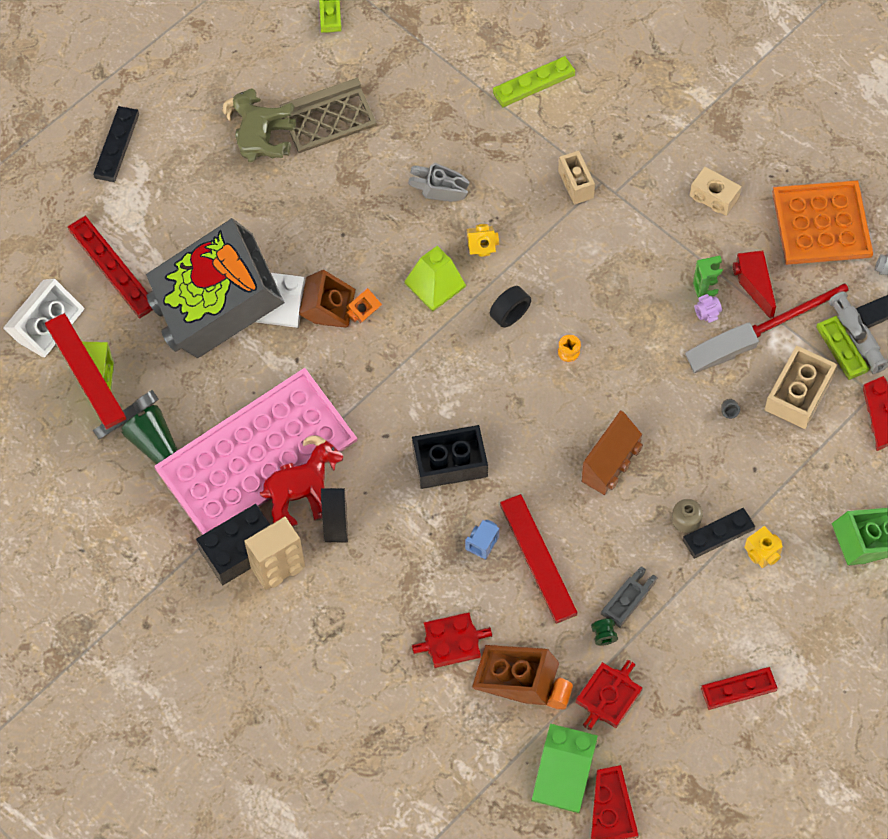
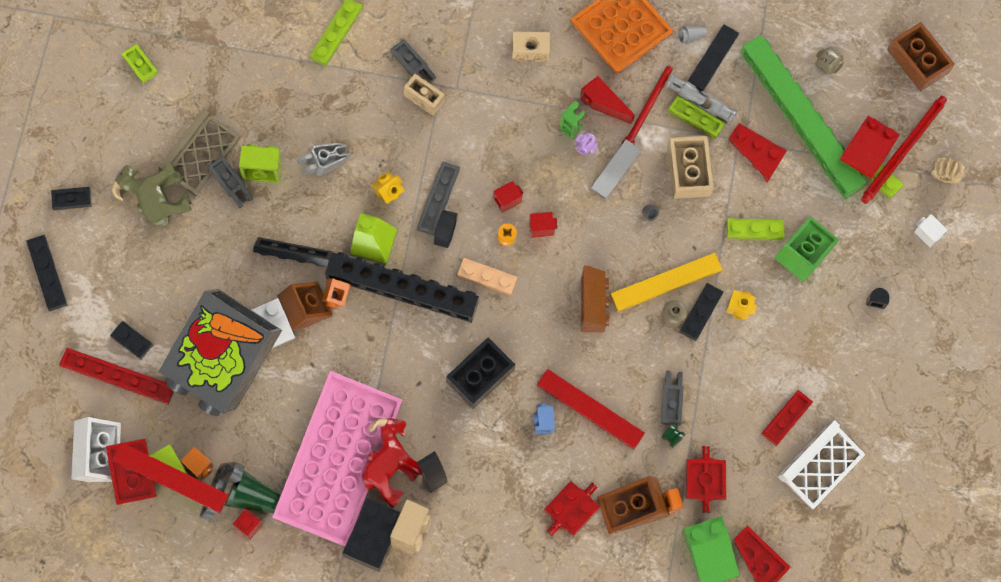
camera: 40 degrees left, 10 degrees up
(49, 364) = (128, 484): none -> red plate
(123, 381) = (197, 464): none -> orange brick
(129, 462) = (247, 524): none -> red brick
(147, 243) = (131, 340): none -> black plate
(184, 92) = (71, 198): none -> black plate
(337, 153) = (229, 180): none -> dark grey hinge
(347, 245) = (292, 251): none -> black plate
(375, 153) = (261, 163): none -> lime brick
(476, 393) = (465, 311): none -> black brick
(522, 376) = (487, 276): none -> light nougat plate
(530, 275) = (438, 198): none -> dark grey tile
(587, 142) = (411, 60): none -> dark grey hinge
(595, 313) = (508, 196): none -> red brick
(610, 358) = (542, 224): none -> red brick
(702, 484) = (666, 282): none -> yellow tile
(739, 734) = (809, 452): none -> white fence
(831, 486) = (755, 229): none -> lime plate

